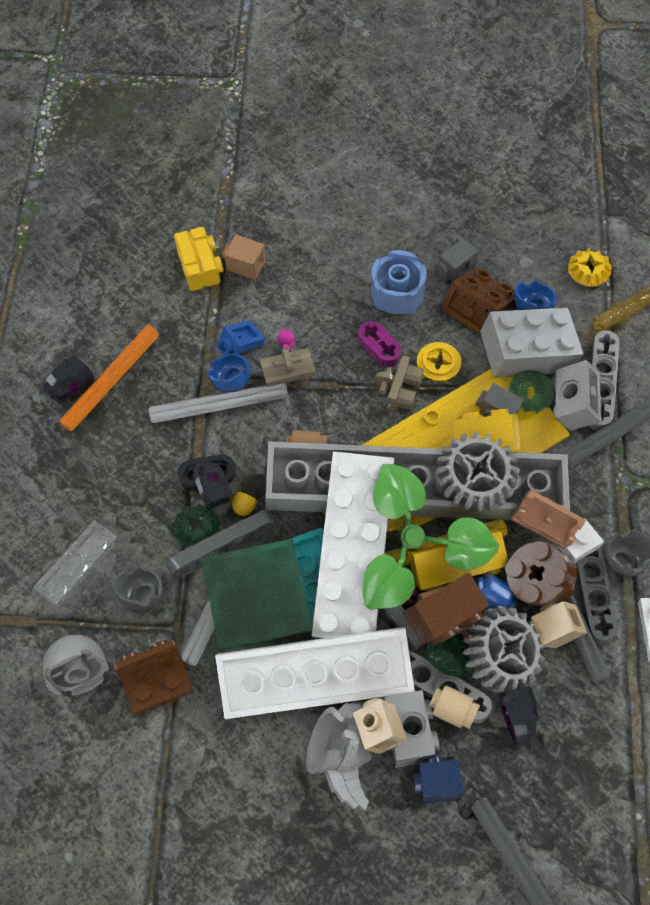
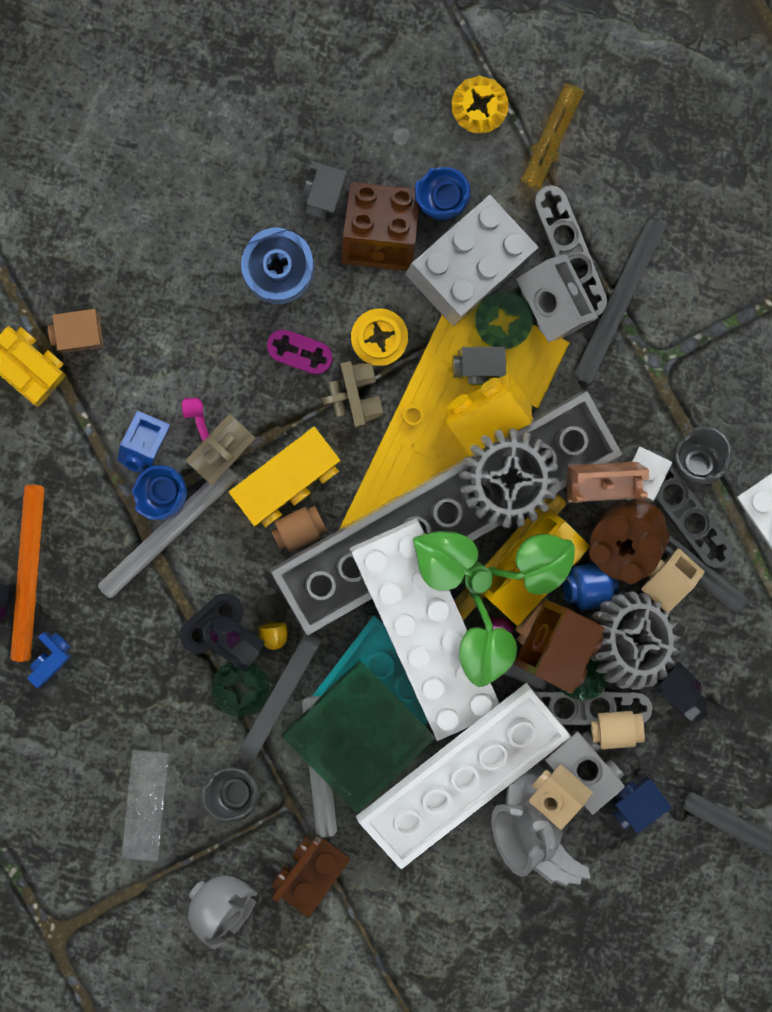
camera: 35 degrees left, 25 degrees up
(82, 436) = (46, 666): none -> blue bracket
(320, 408) = (286, 478): none -> yellow brick

